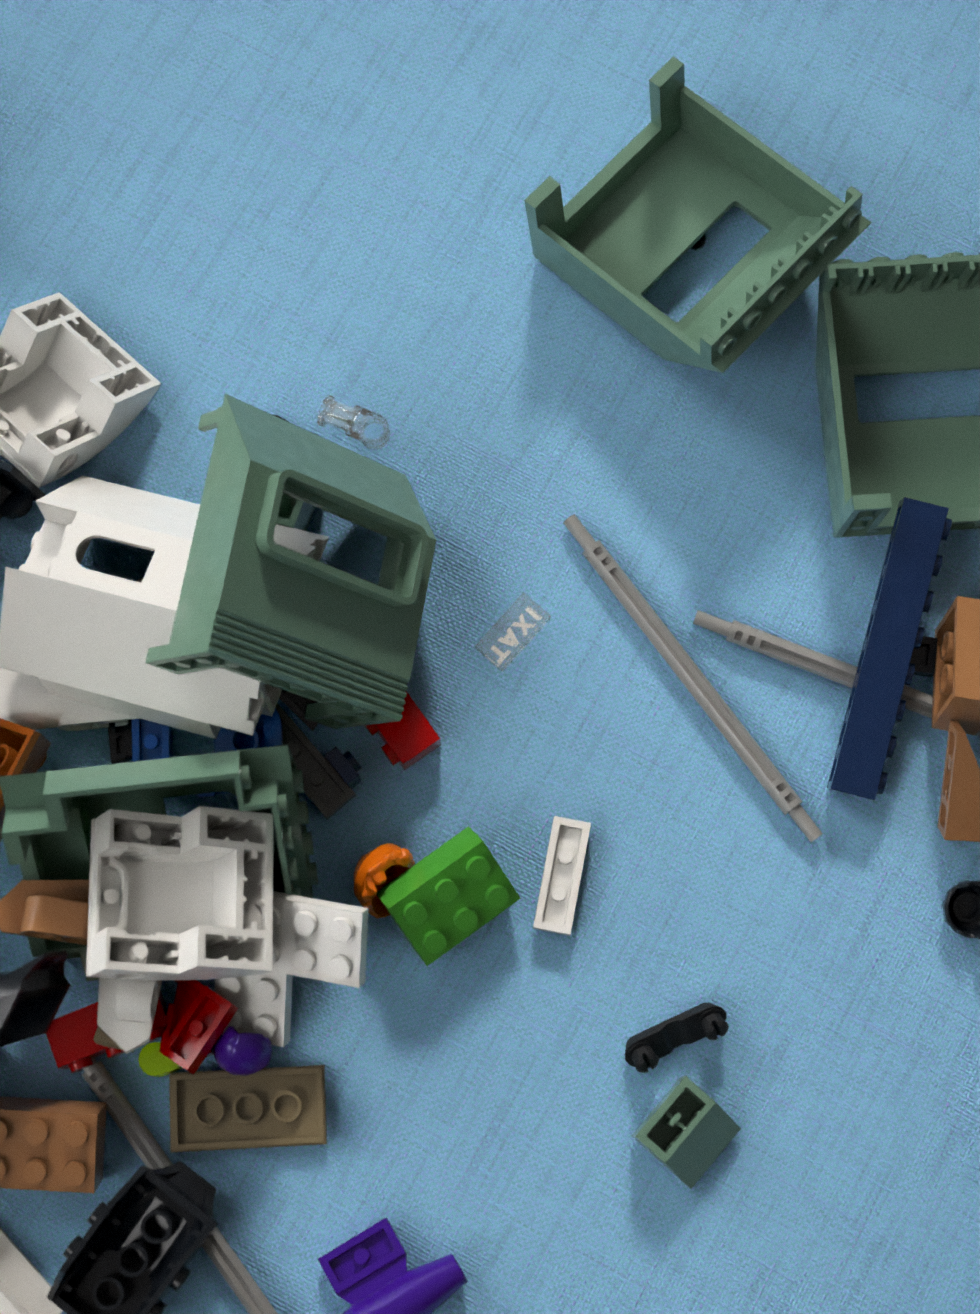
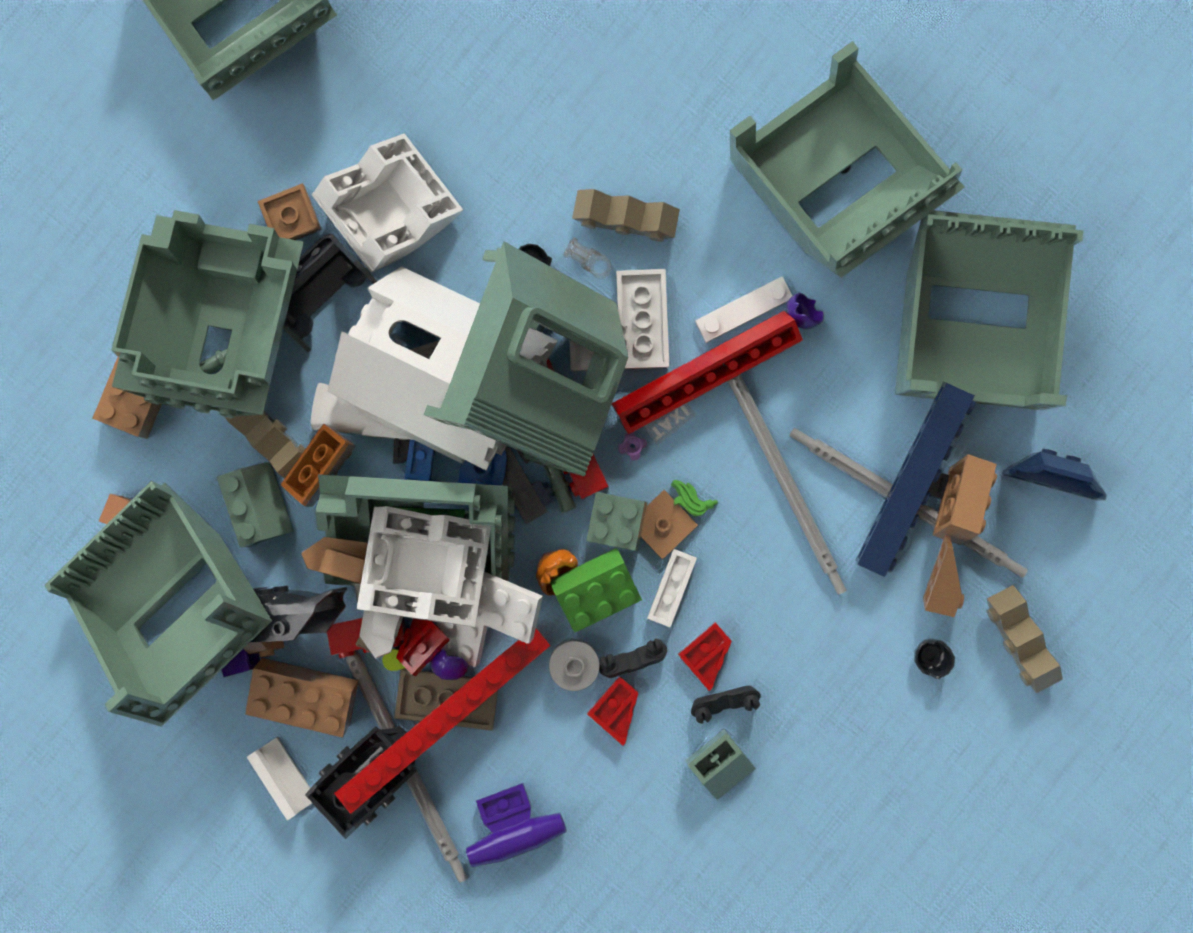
camera: 20 degrees right, 10 degrees up
(241, 1139) = (440, 722): none -> red brick
(369, 757) = (560, 489): none -> sand green pin
(397, 351) = (625, 215): none -> dark tan brick
(434, 1017) = (573, 664): none -> light grey piece
(451, 492) = (642, 318): none -> white plate
(462, 667) = (634, 453): none -> medium lavender plate
(462, 789) = (617, 521): none -> sand green brick
(500, 1008) = (641, 657): none -> black piece
(510, 1076) = (615, 709): none -> red wing
(531, 784) = (665, 524): none -> medium nougat plate
(554, 550) = (707, 371): none -> red brick
(564, 741) = (689, 499): none -> bright green piece
(592, 457) = (743, 309): none -> white plate
(633, 967) = (706, 654): none -> red wing
(677, 444) = (804, 312): none -> dark purple hair

